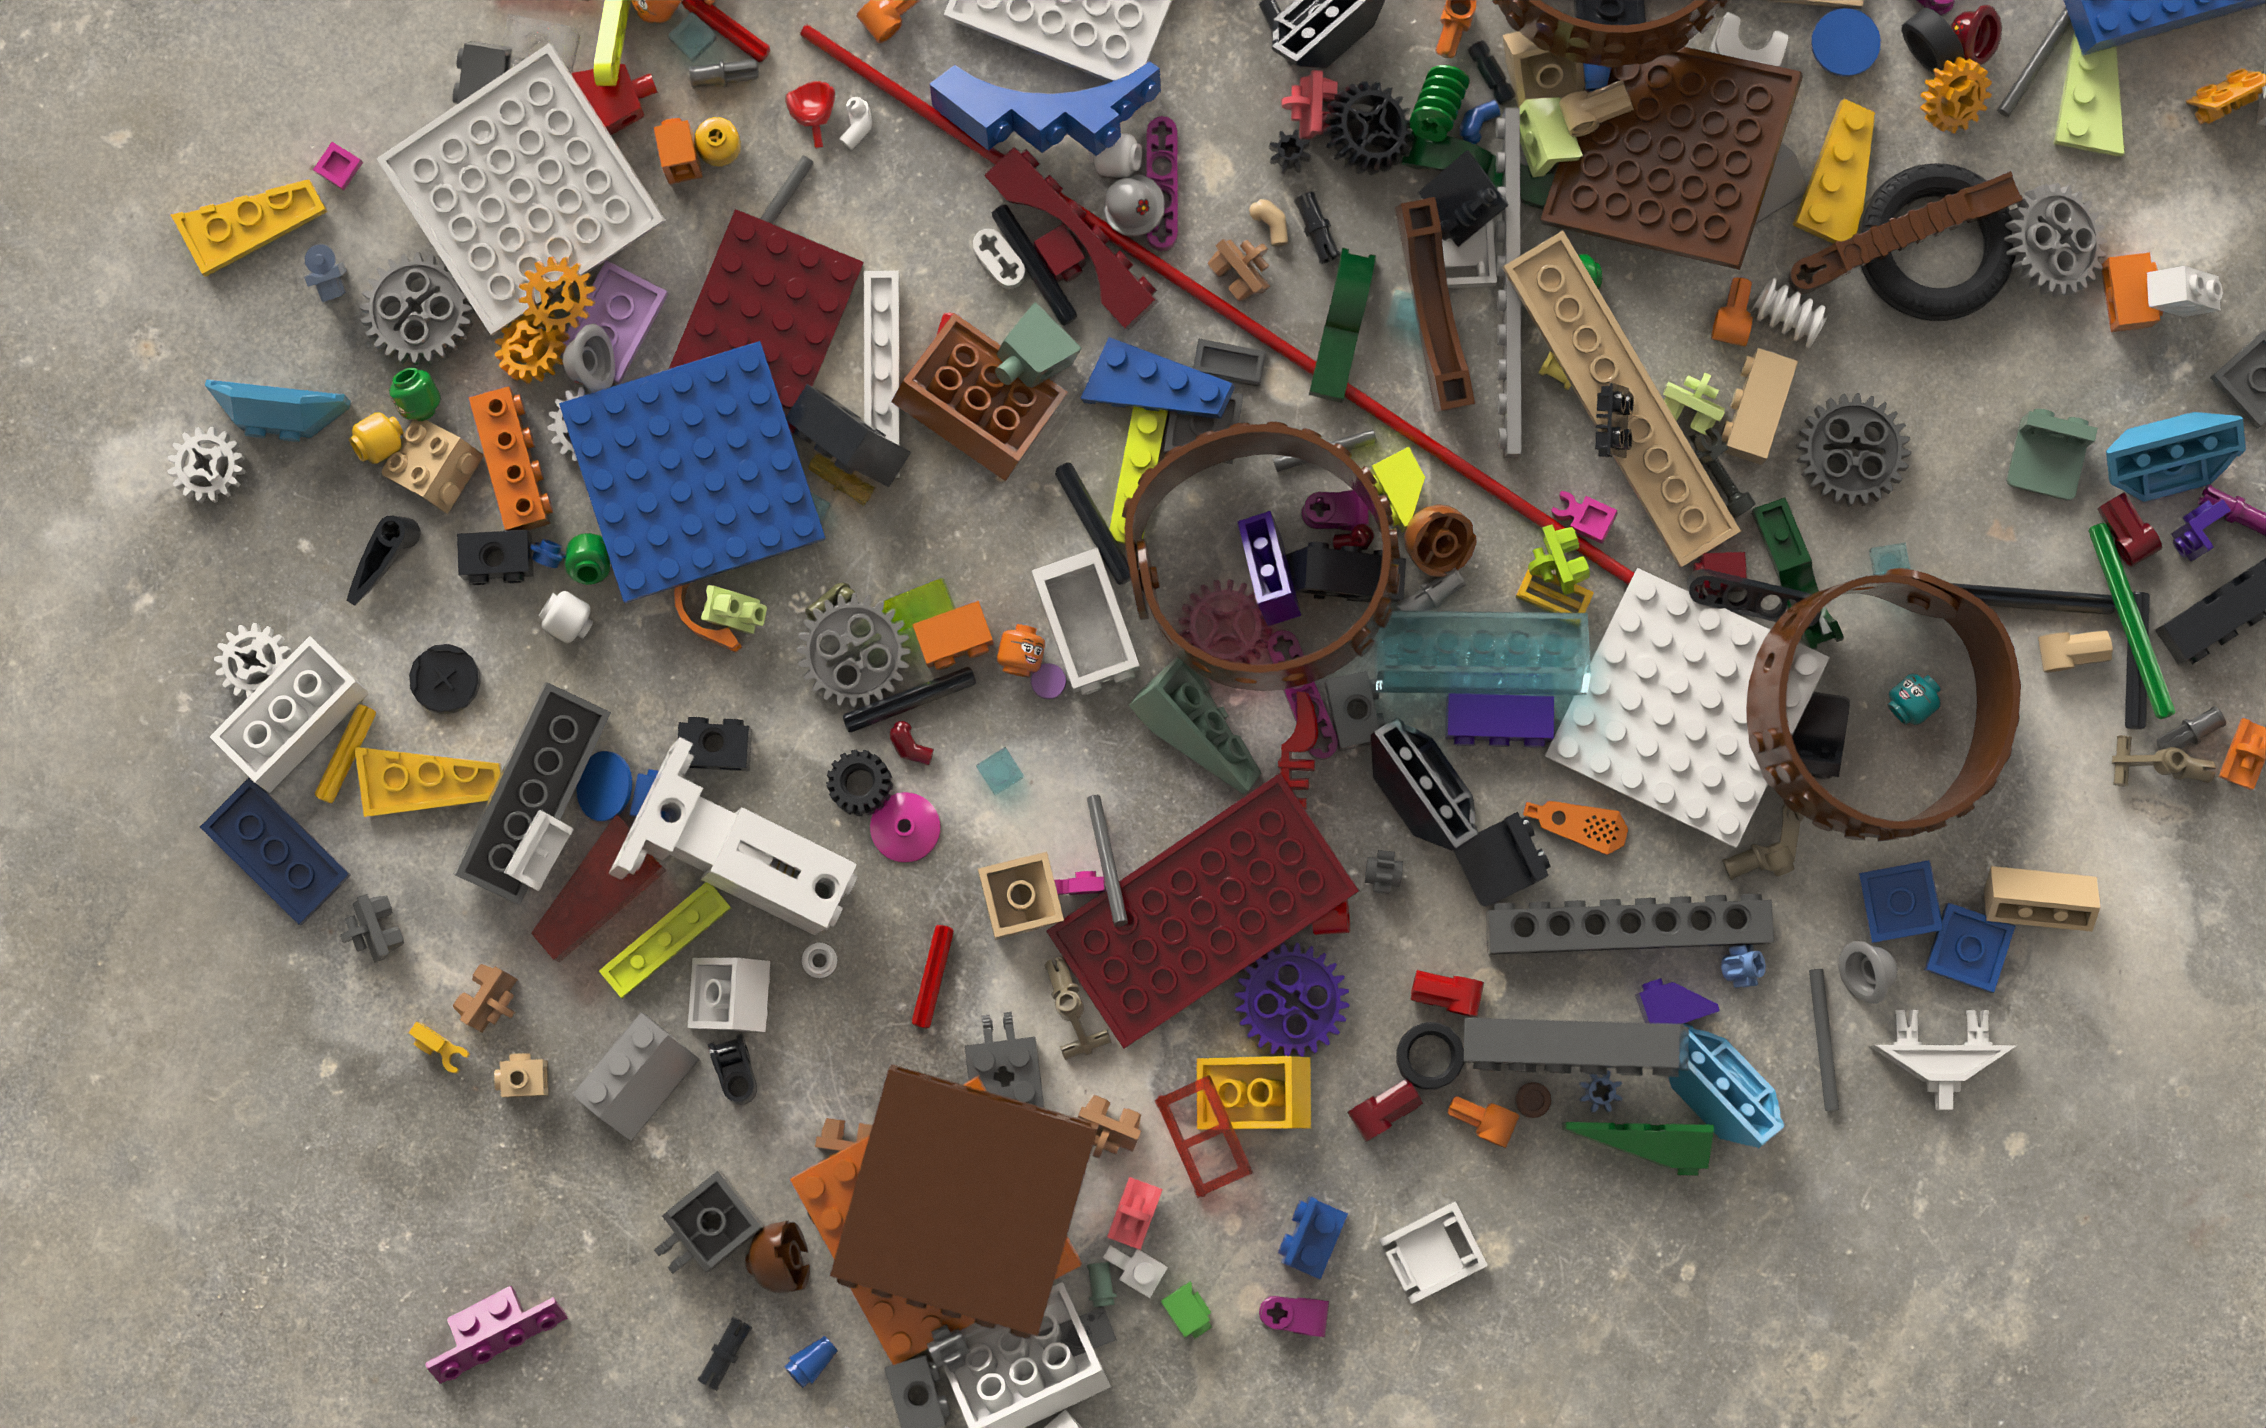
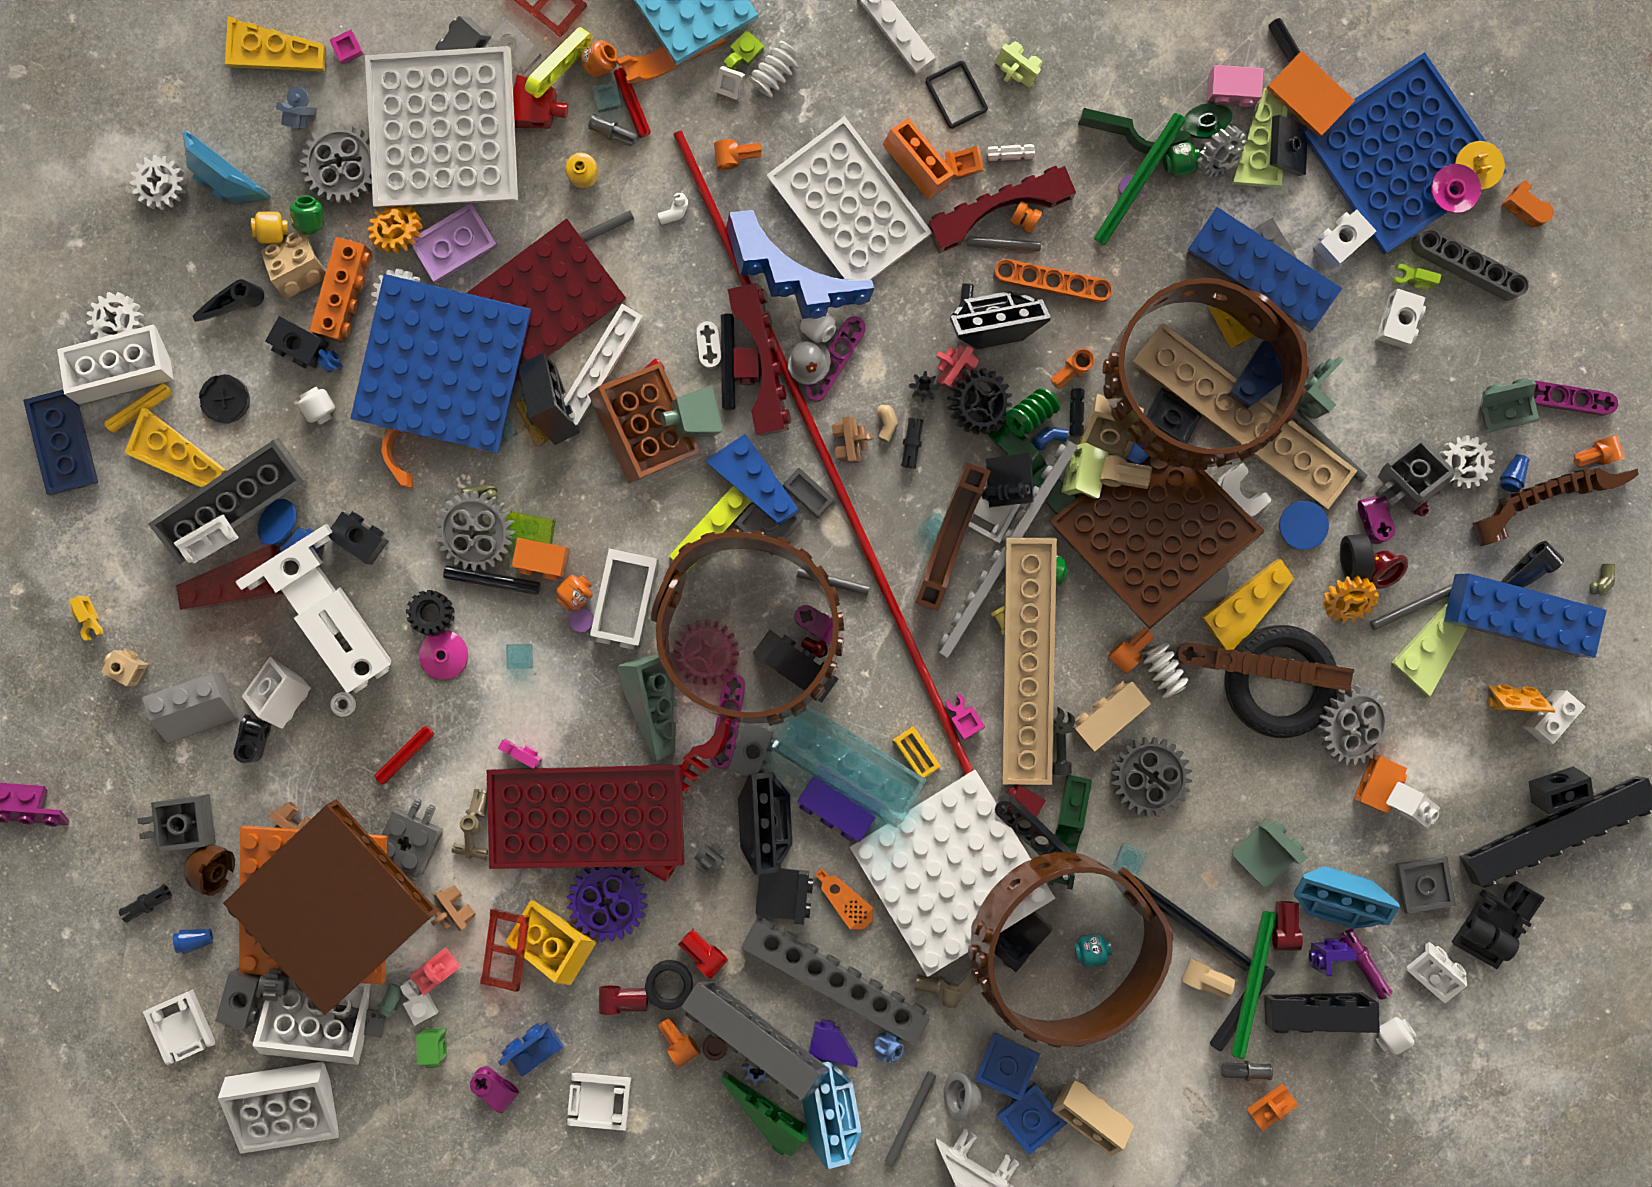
camera: 25 degrees right, 5 degrees up
(368, 912) = (92, 512): dark grey hips -> none
(489, 1001) = (133, 609): medium nougat hips -> none
(544, 284) = (413, 200): light orange gear -> none
(587, 559) = (346, 378): green head -> none
(590, 359) = (422, 258): light grey hat -> none
(665, 939) = (255, 636): neon yellow plate -> none
(678, 151) = (551, 161): orange brick -> none
(733, 610) = (416, 462): yellowish green hips -> none
(812, 106) = (652, 183): red piece -> none
(905, 745) = (472, 607): dark red arm -> none
(1020, 895) = (481, 740): tan slope -> none
(1094, 522) = (666, 536): black axle -> none
(1107, 861) = (547, 751): dark grey bar -> none
(1269, 568) = (751, 635): dark purple brick -> none
(1342, 326) = (889, 512): dark green piece -> none
(1401, 482) = (865, 630): neon yellow slope -> none
(1433, 593) = (842, 708): light grey pin -> none
(1439, 539) = (866, 679): dark orange cylinder -> none
(1567, 572) = (936, 725): lime hips -> none
(1619, 405) = (1010, 686): black hinge -> none
(1707, 411) = (1077, 698): yellowish green hips -> none
(2165, 762) = (1219, 1082): dark tan pin -> none

